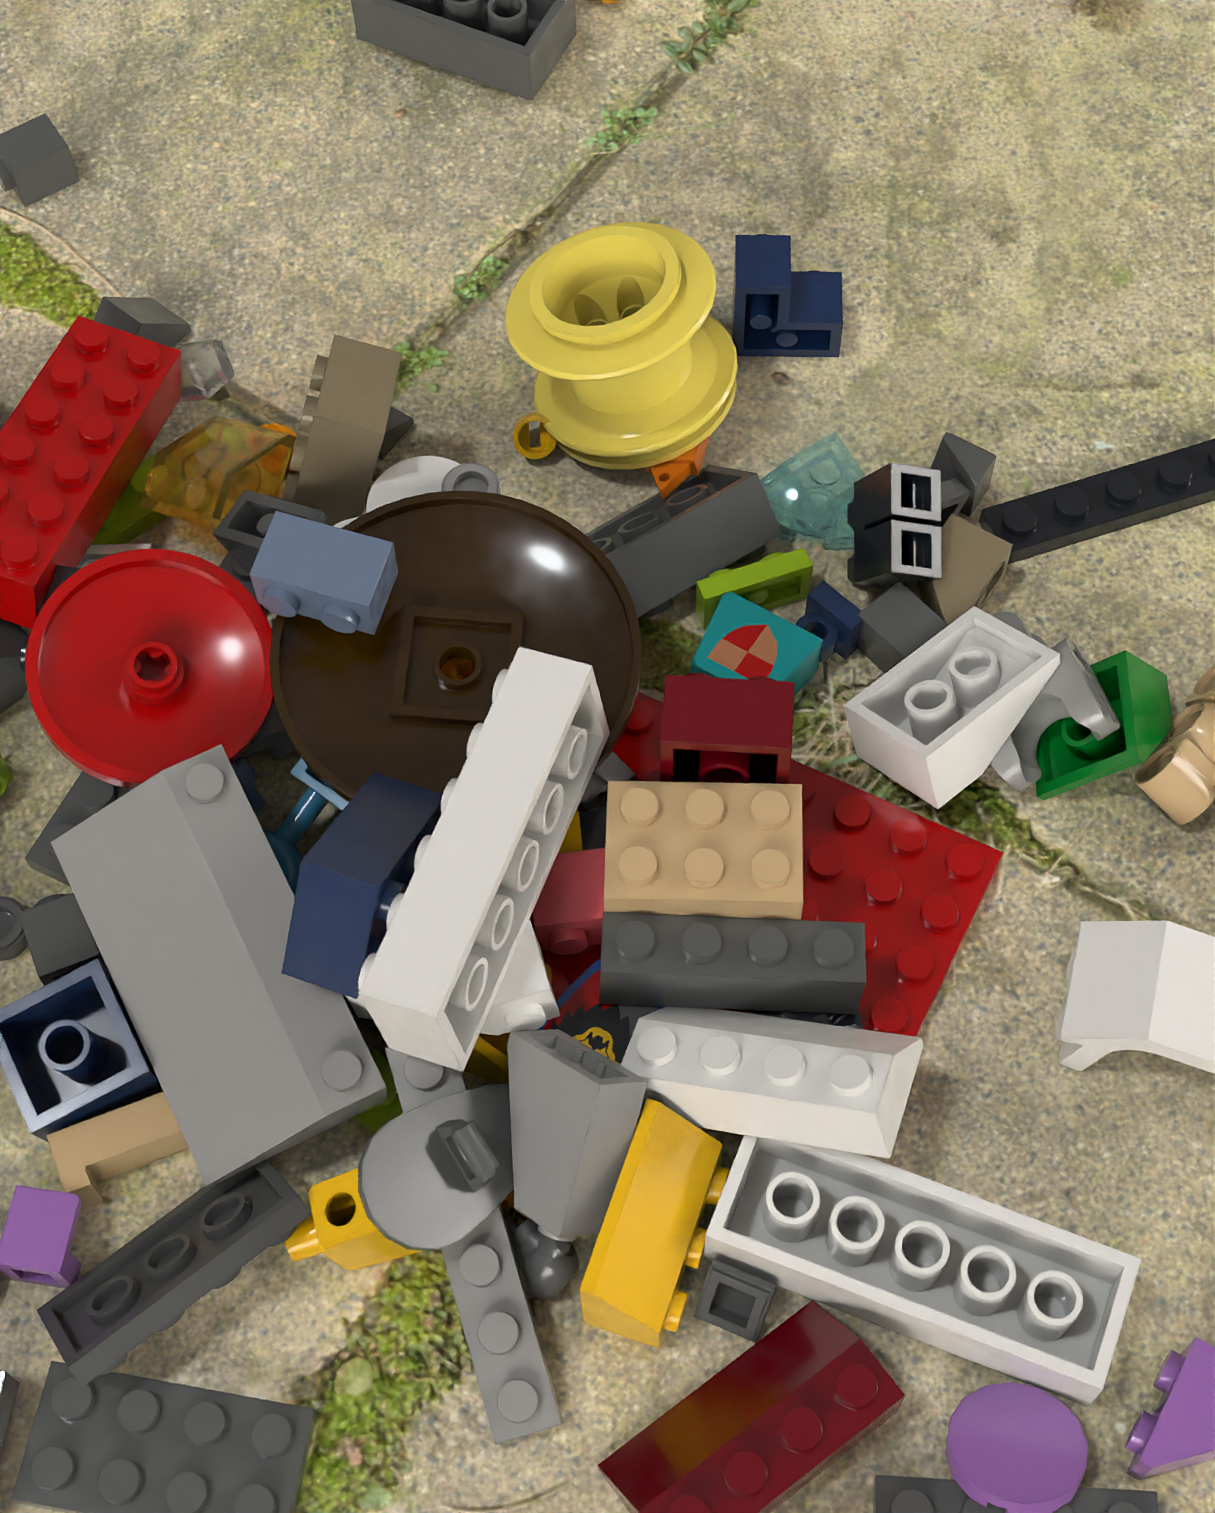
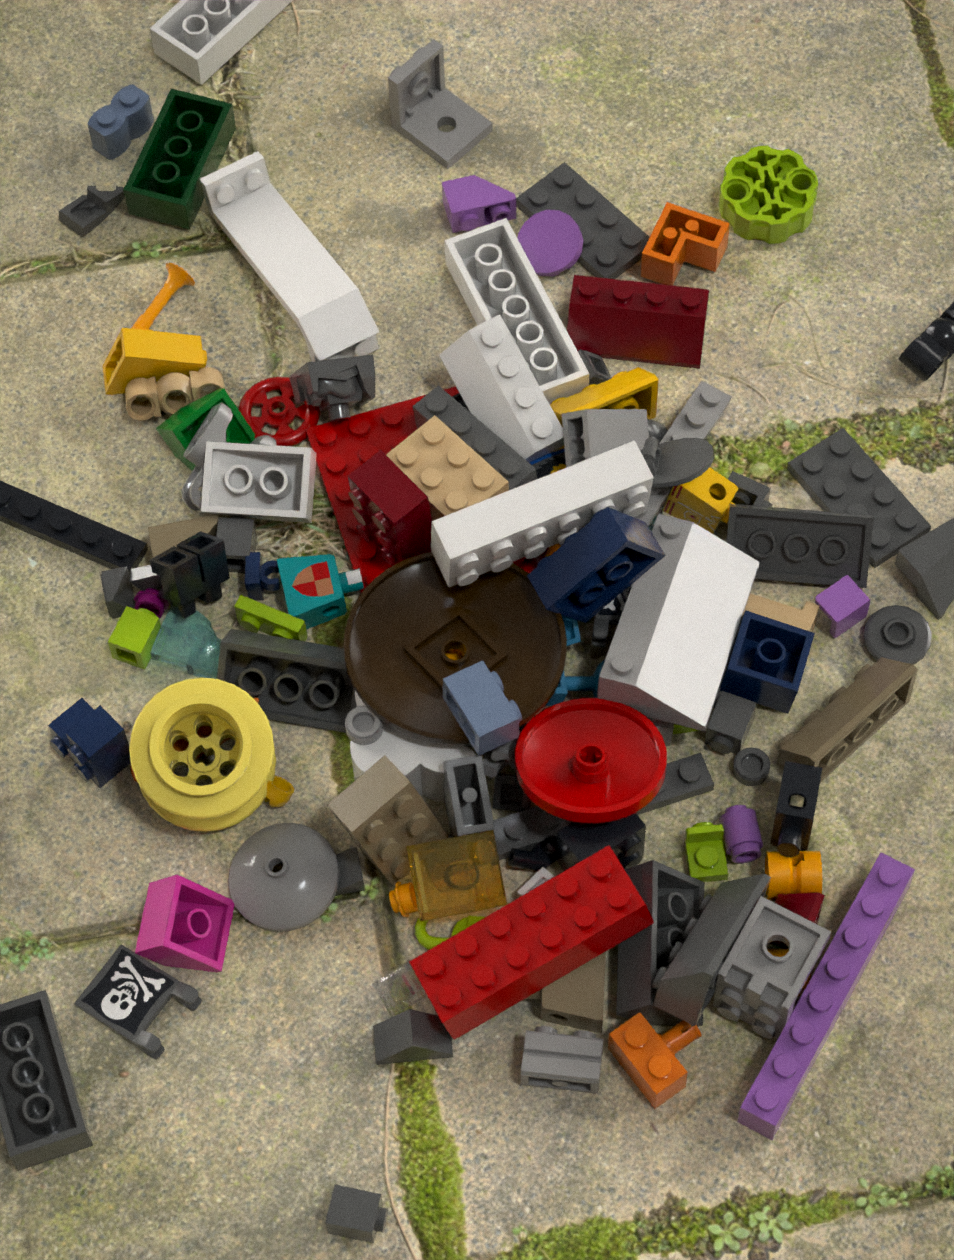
camera: 135 degrees left, 0 degrees up
(326, 1293) = (750, 491): none -> dark grey bracket
(449, 368) = (296, 892): none -> light grey dish
(458, 165) = (131, 995): none -> flag
(476, 241) = (184, 925): none -> dark pink slope
(878, 435) = (134, 637): none -> lime brick
(1028, 912) = (335, 384): none -> dark grey brick
(1031, 883) = (257, 397): none -> red plate

